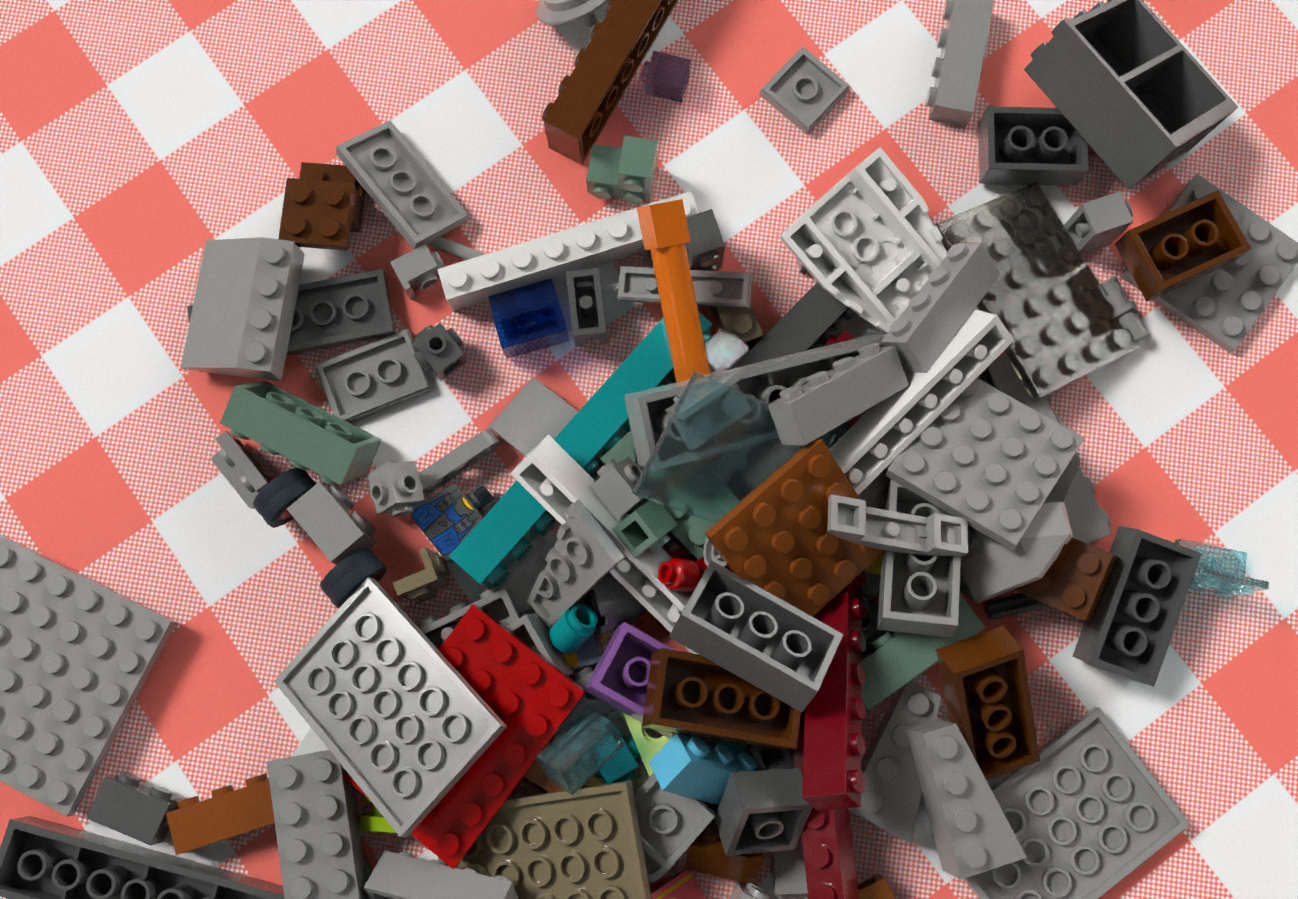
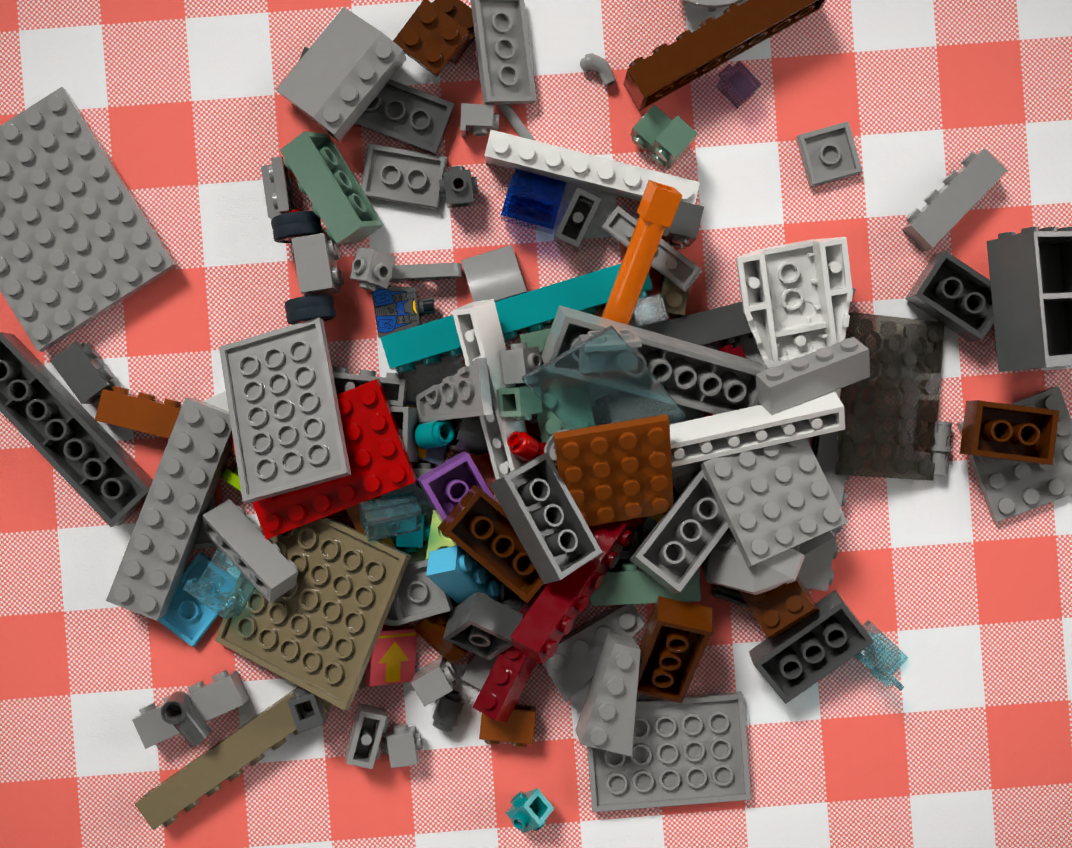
camera: 30 degrees right, 10 degrees up
(424, 583) = (353, 343): dark tan bracket -> none
(509, 142) = (600, 65): none -> light grey arm
(837, 395) = (701, 394): light grey brick -> none
(895, 530) = (681, 507): light grey slope -> none
(1099, 222) = (965, 379): light grey brick -> none

